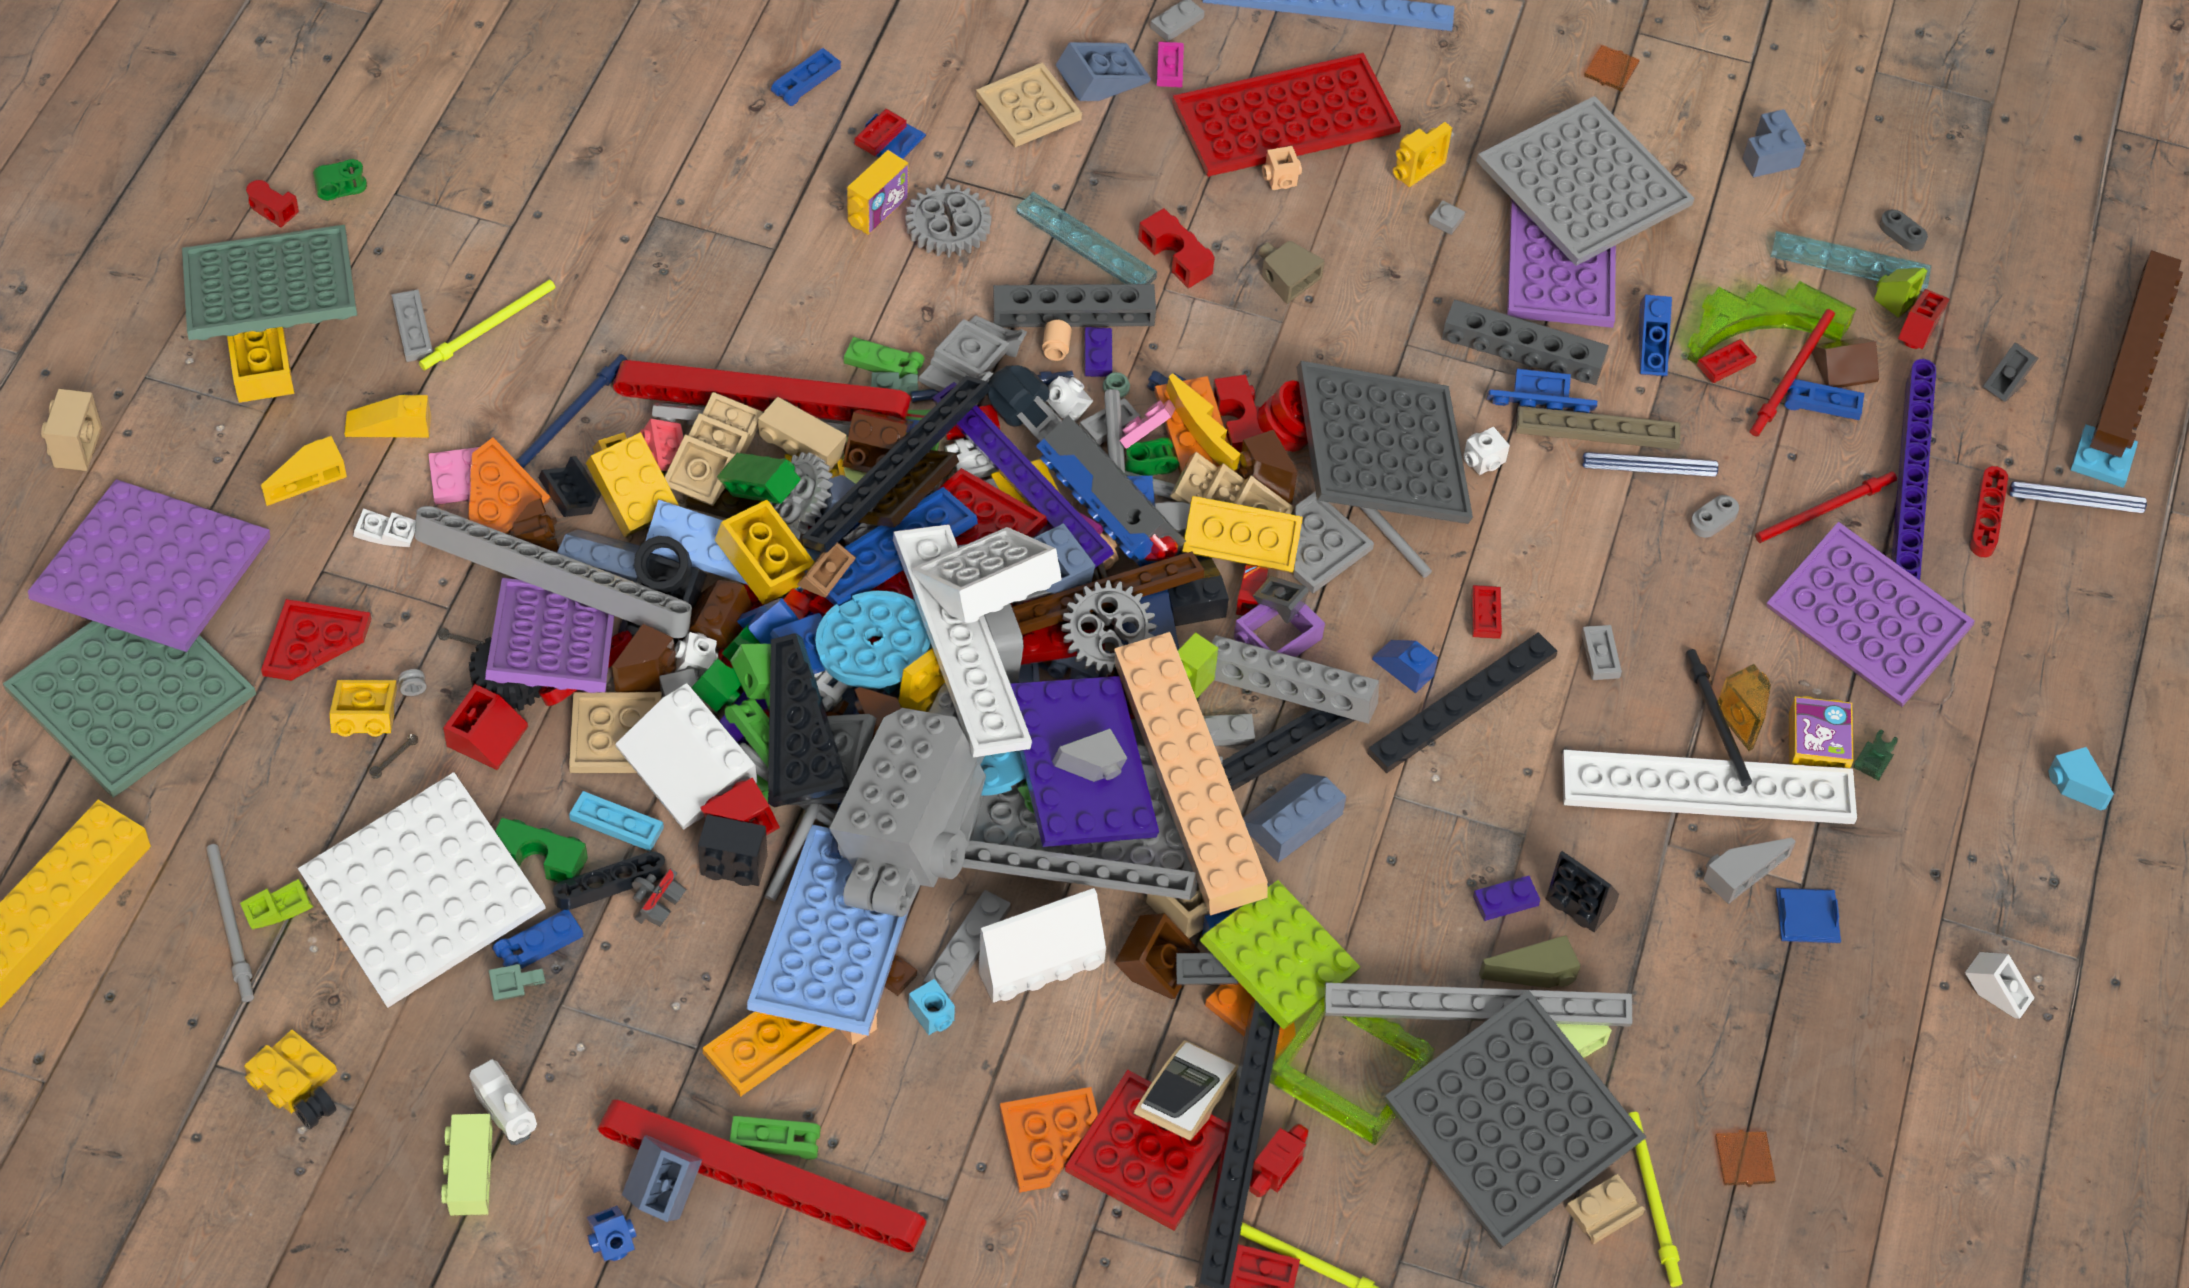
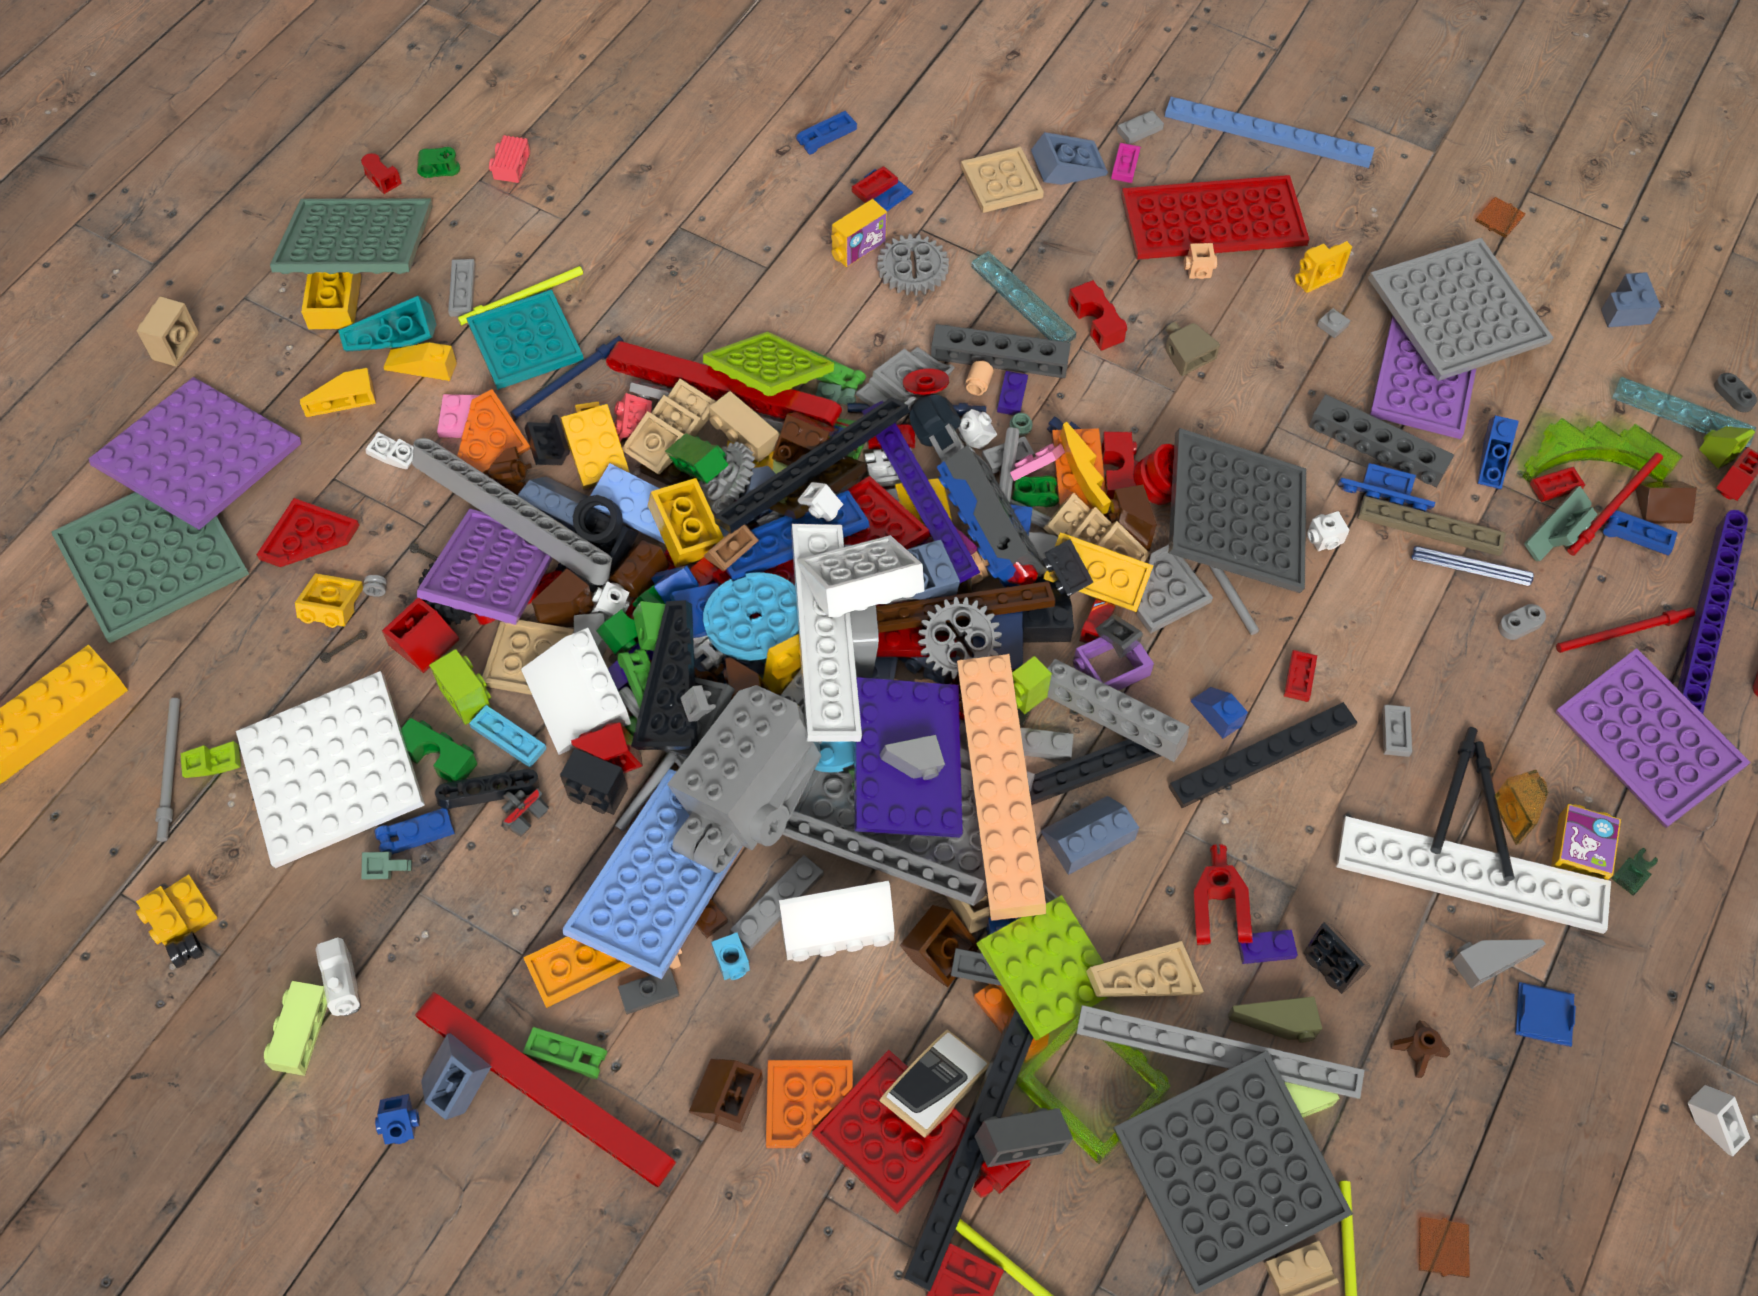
camera: 15 degrees right, 5 degrees up
(348, 384) = (394, 327): none -> teal wedge
(429, 162) = (510, 159): none -> coral brick
(508, 375) = (524, 339): none -> teal plate
(550, 774) = (460, 685): none -> lime brick
(811, 359) = (768, 363): none -> lime plate
(839, 738) = (696, 703): none -> light grey tile
(849, 1060) = (648, 992): none -> dark grey plate
(919, 502) = (821, 501): none -> white brick
(964, 1142) = (727, 1093): none -> reddish brown slope
(999, 352) = (925, 381): none -> red dish
(1208, 534) = (1067, 568): none -> black bracket
(1292, 1123) = (1023, 1137): none -> dark grey brick
(1386, 944) = (1149, 973): none -> tan wing
(1459, 843) = (1234, 888): none -> red piece
(1678, 662) = (1465, 751): none -> black bar
(1687, 967) = (1422, 1046): none -> reddish brown brick
(1739, 405) = (1562, 524): none -> sand green bracket

